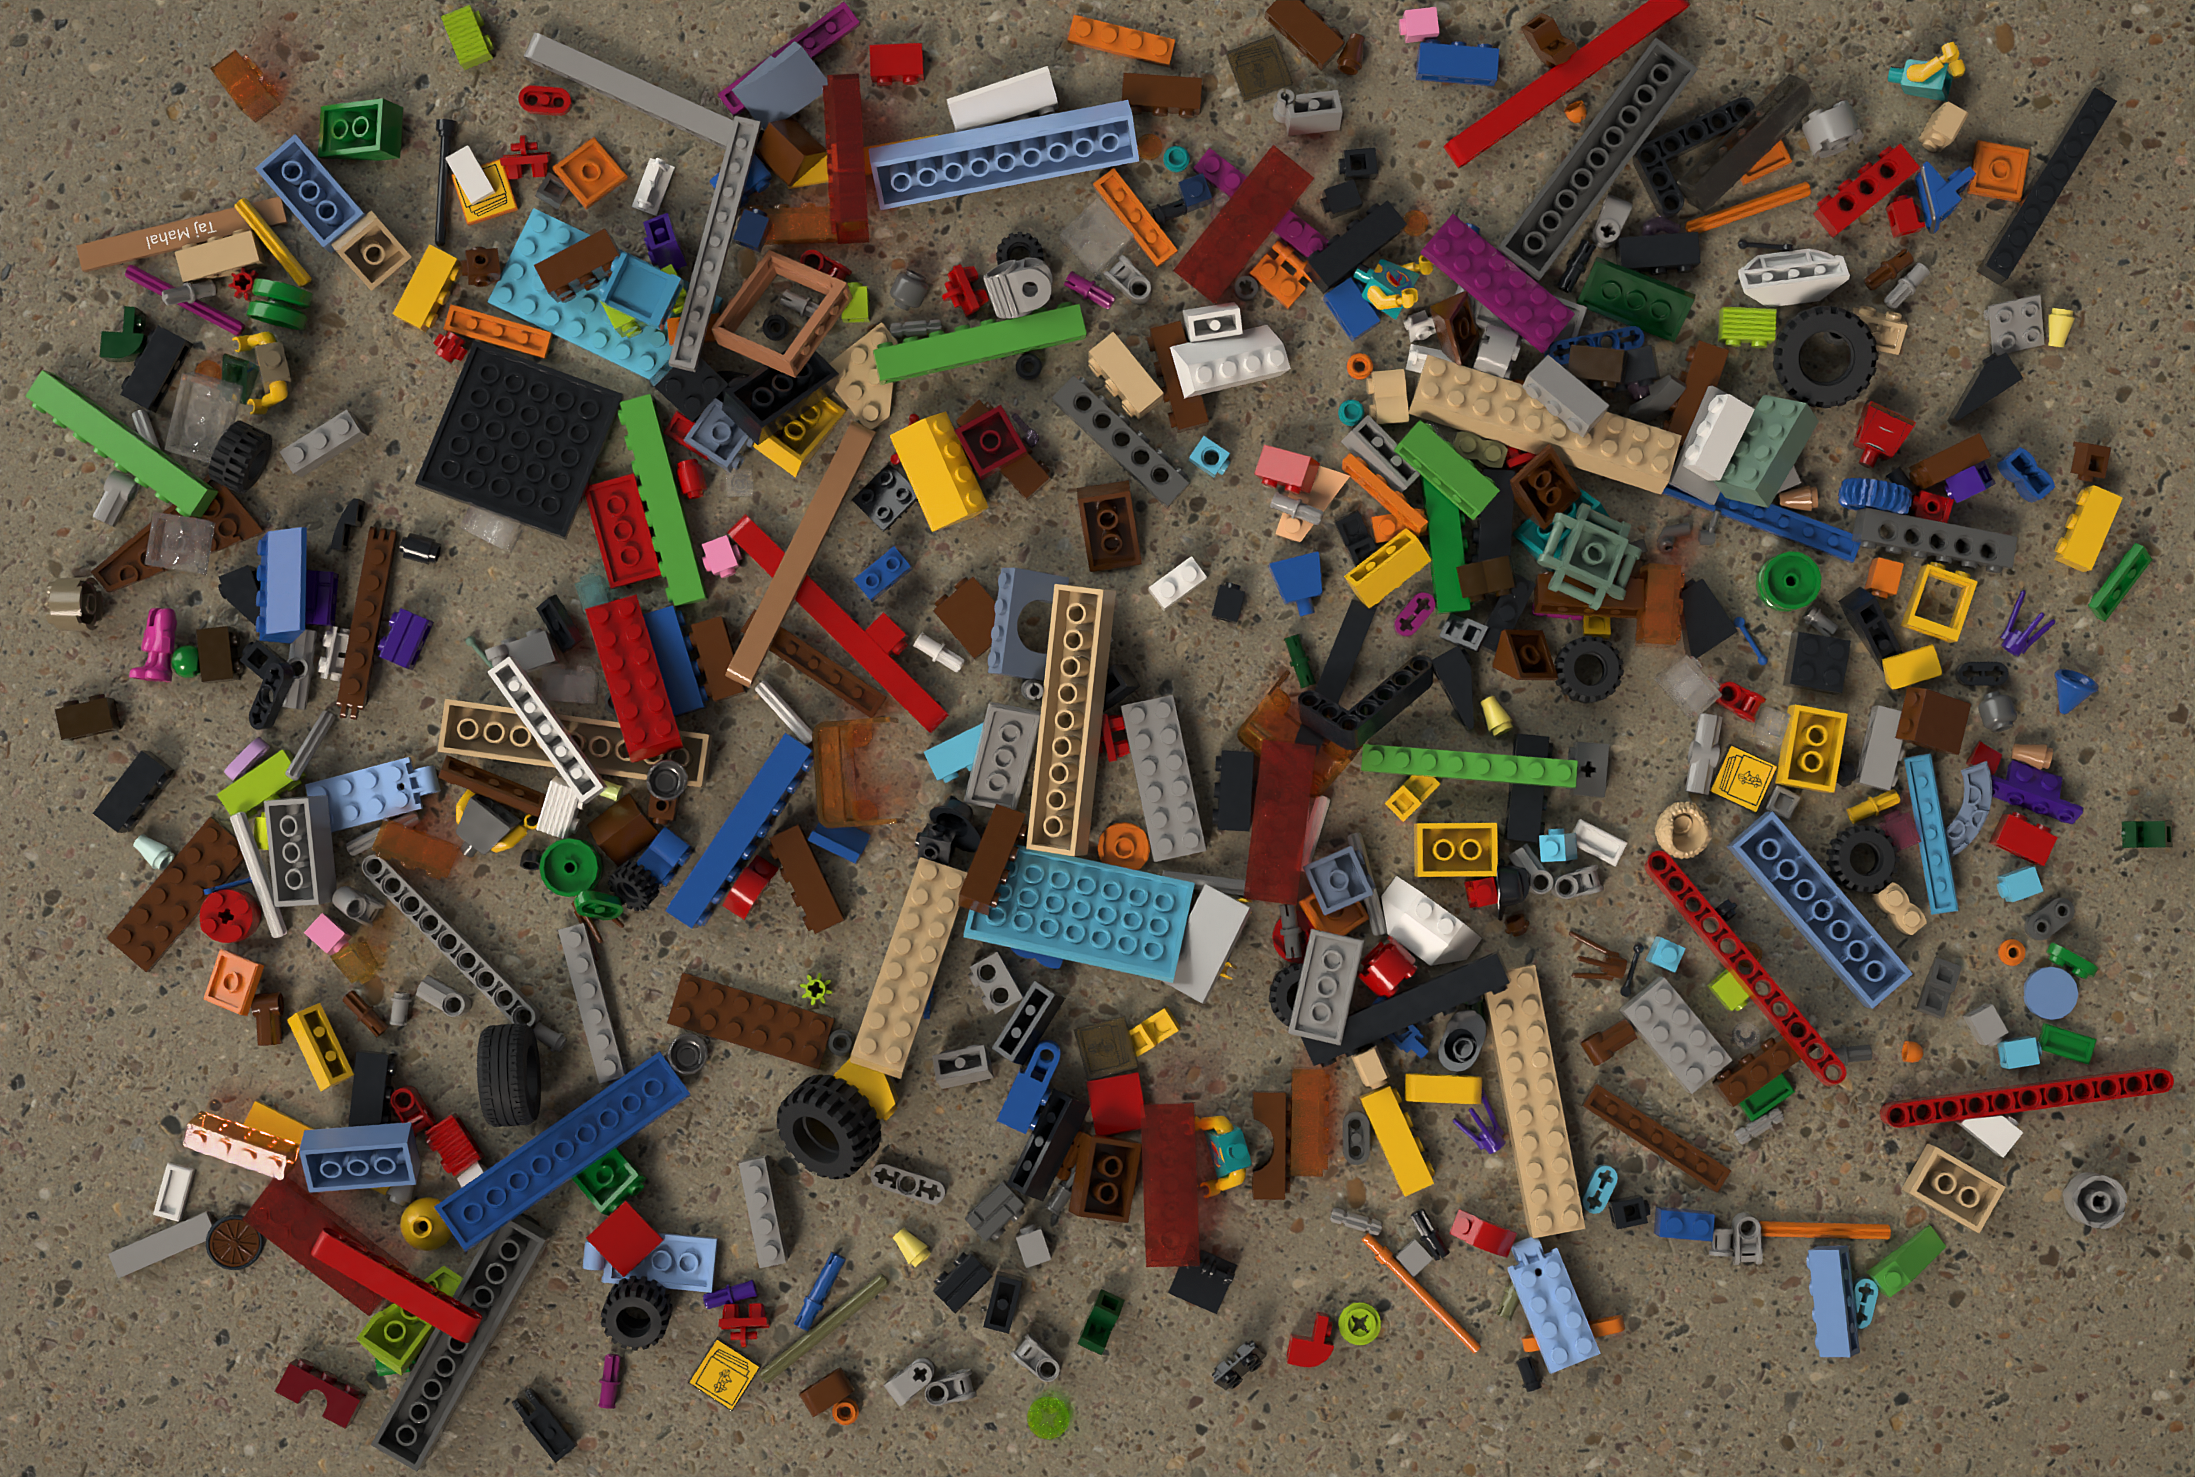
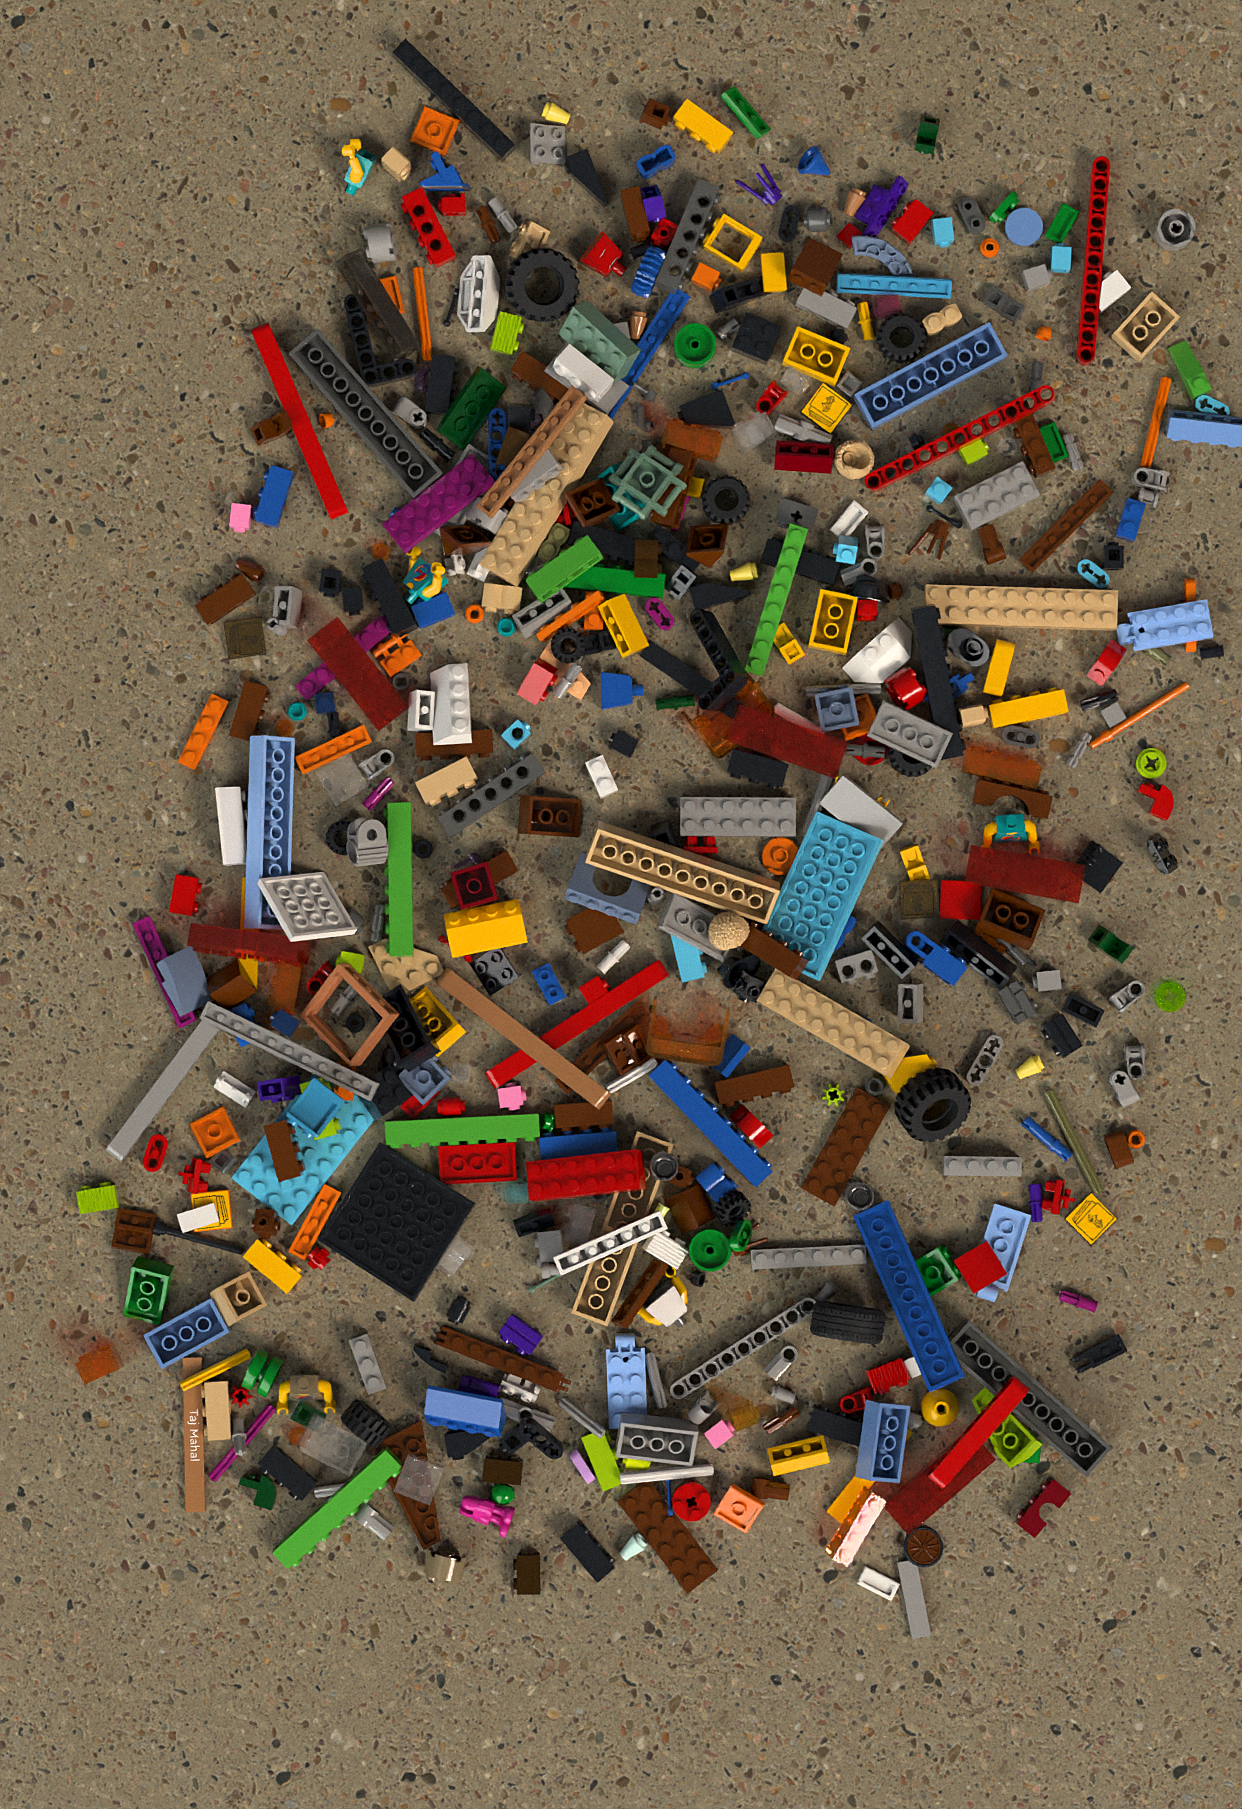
camera: 80 degrees left, 0 degrees up
(415, 849) = (672, 1358): clear orange brick -> none
(435, 94) = (133, 1231): none -> reddish brown slope
(634, 1331) = (1020, 1270): black tyre -> none
(698, 612) = (547, 1121): none -> green plate
(817, 696) = (626, 1049): none -> reddish brown slope
(913, 223) = (307, 906): none -> white plate
(960, 290) = (358, 885): red hips -> none
(1005, 798) = (728, 931): none -> tan hair
(1344, 483) = (556, 645): none -> black tyre
(1490, 1138) = (1040, 642): dark purple plant -> none
(1596, 388) = (531, 452): none -> medium nougat tile
(1670, 761) = (803, 457): none -> dark red brick

